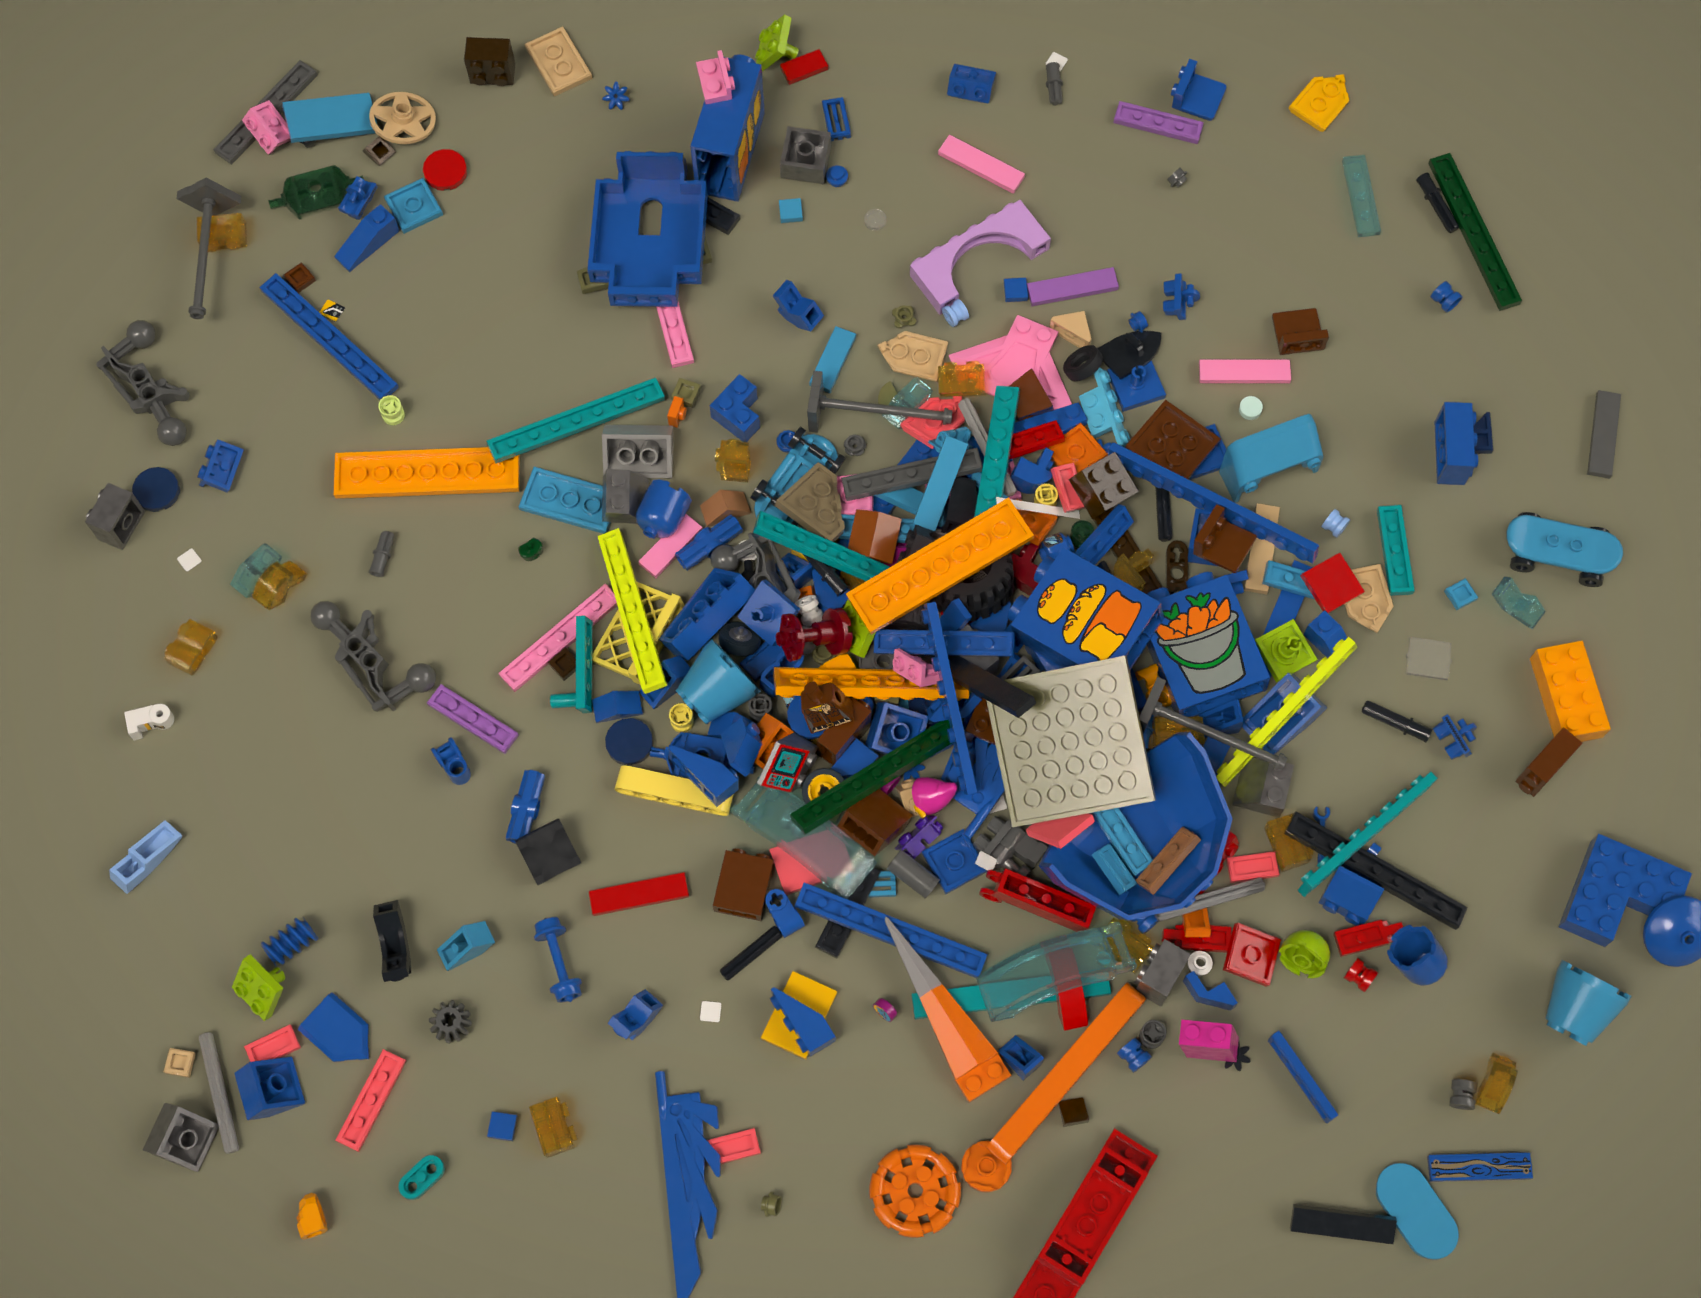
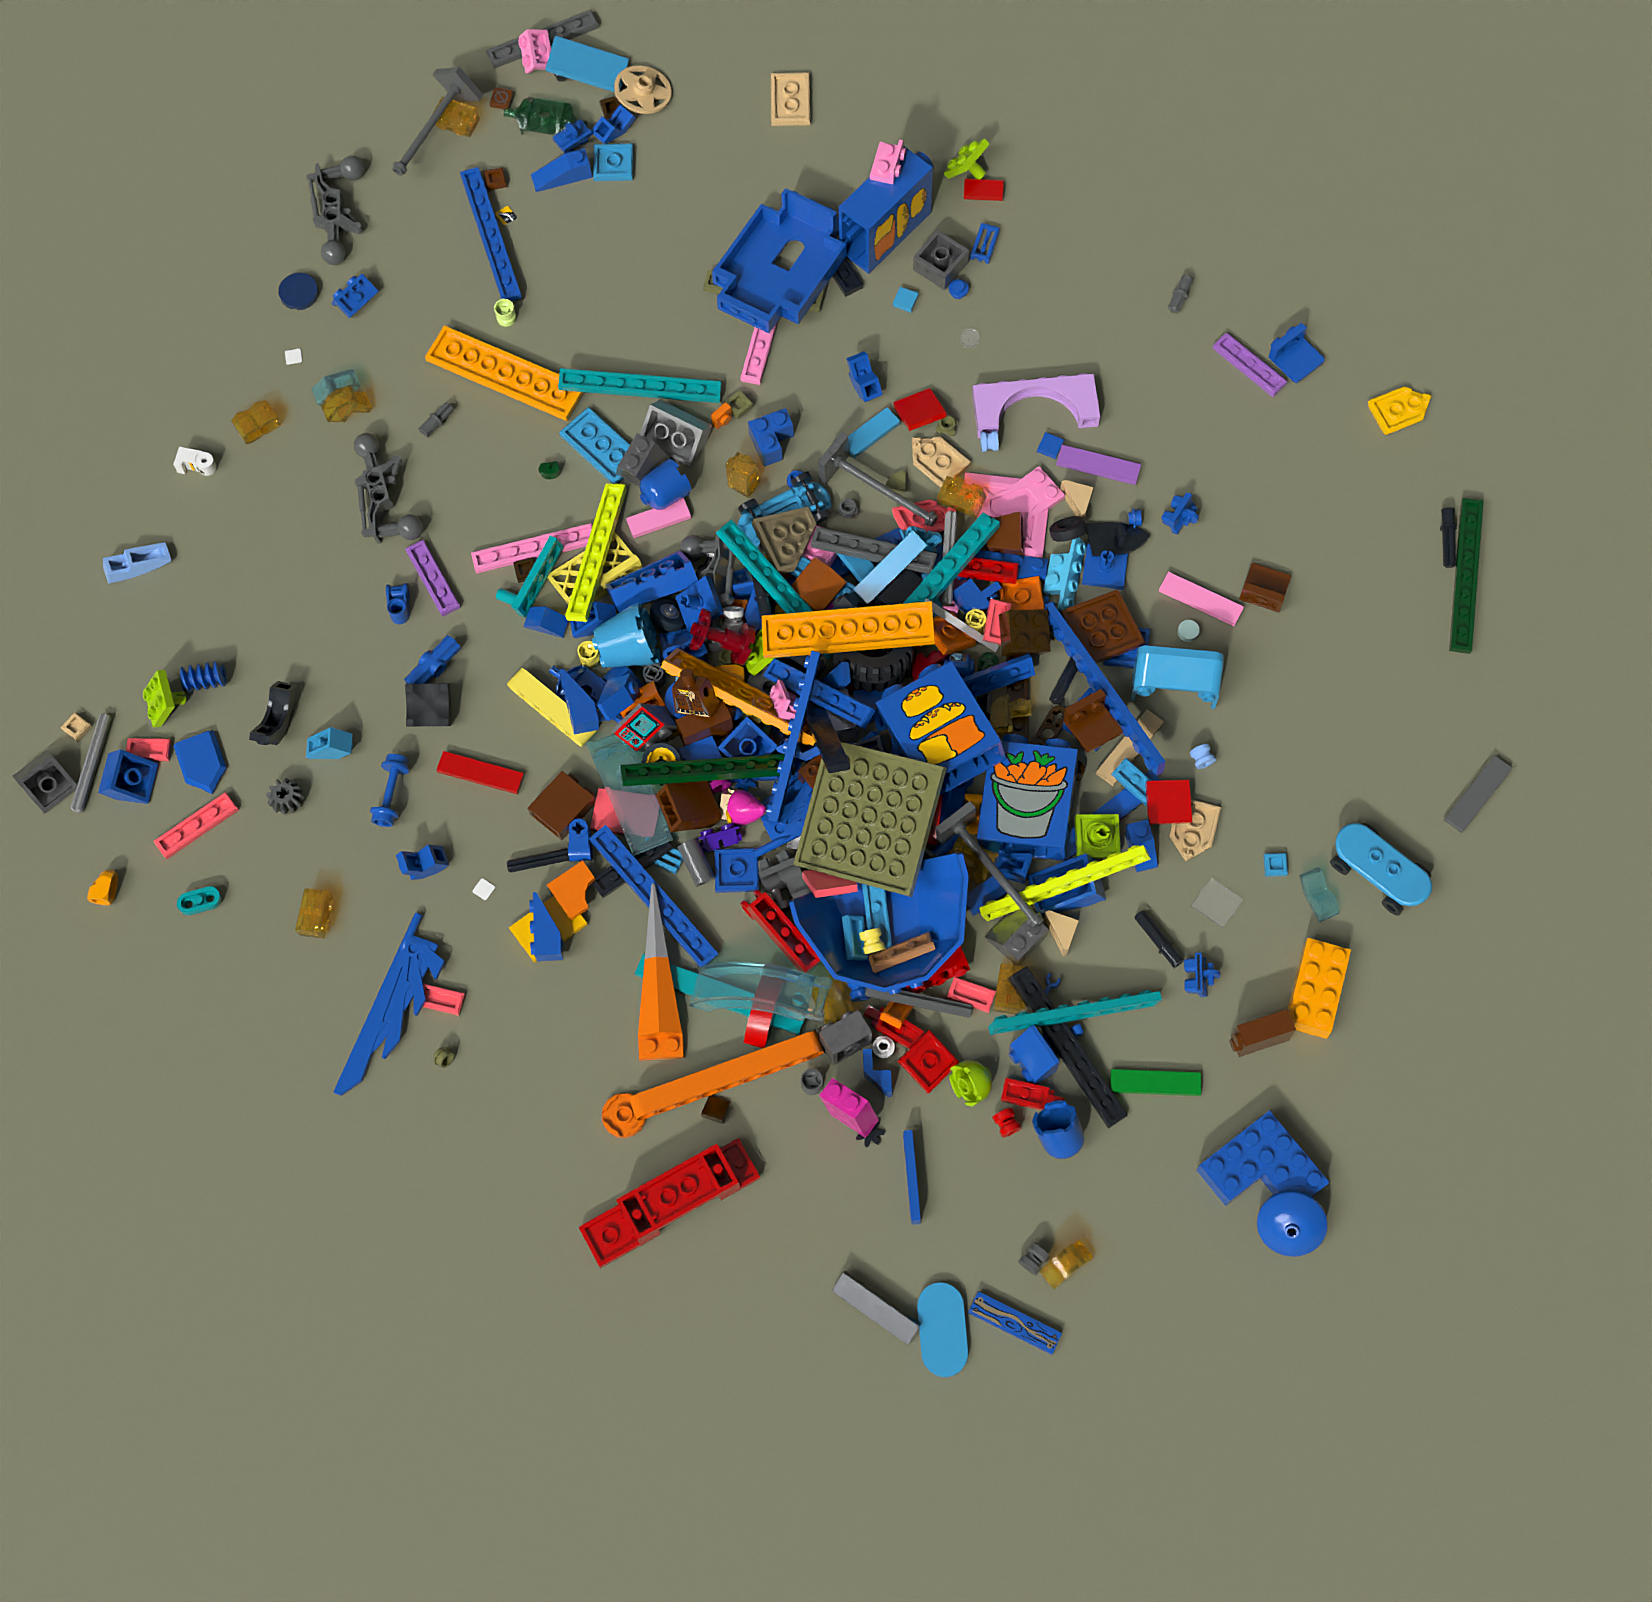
camera: 30 degrees right, 0 degrees up
(114, 516) = (254, 296): flat silver brick -> none
(258, 192) = (501, 98): none -> reddish brown tile
(395, 167) = (617, 125): none -> blue slope
(445, 169) = (653, 145): red tile -> none
(489, 61) = (733, 74): dark brown brick -> none
(502, 1126) = (279, 894): blue tile -> none
(612, 96) = (818, 146): blue plant -> none
(629, 741) = (539, 653): dark blue tile -> none
(707, 541) = (688, 526): blue piece -> none
(722, 505) = (717, 508): medium nougat slope -> none
(803, 965) = (571, 889): none -> orange tile
(869, 313) = (919, 409): none -> red tile
(885, 1009) = (615, 955): magenta tile -> none
(911, 396) = (913, 490): clear light blue slope -> none
(919, 1175) = (552, 1092): orange plate -> none
(971, 83) = (1111, 263): blue bracket -> none
(981, 164) = (1082, 332): bright pink tile -> none
(986, 861) = (758, 881): white sticker -> none
(1021, 1057) = (698, 1046): blue slope -> none
(1057, 58) = (1197, 277): white sticker -> none
(1134, 863) = (872, 941): none -> light yellow wheel
(1134, 1055) = (788, 1090): blue wheel -> none
(1177, 178) = (1238, 416): dark grey plate -> none
(1236, 578) = (1090, 760): blue tile -> none
(1305, 760) = (1062, 929): none -> tan slope
(1361, 196) = (1386, 502): clear light blue tile -> none
(1395, 550) = (1240, 802): teal plate -> none
(1446, 296) = (1408, 617): blue wheel -> none
(1455, 443) = (1341, 739): blue brick -> none
(1473, 862) = (1155, 1082): none -> green tile
(1484, 435) = (1369, 745): dark blue tile -> none
(1583, 1004) = (1173, 1237): dark azure cone -> none

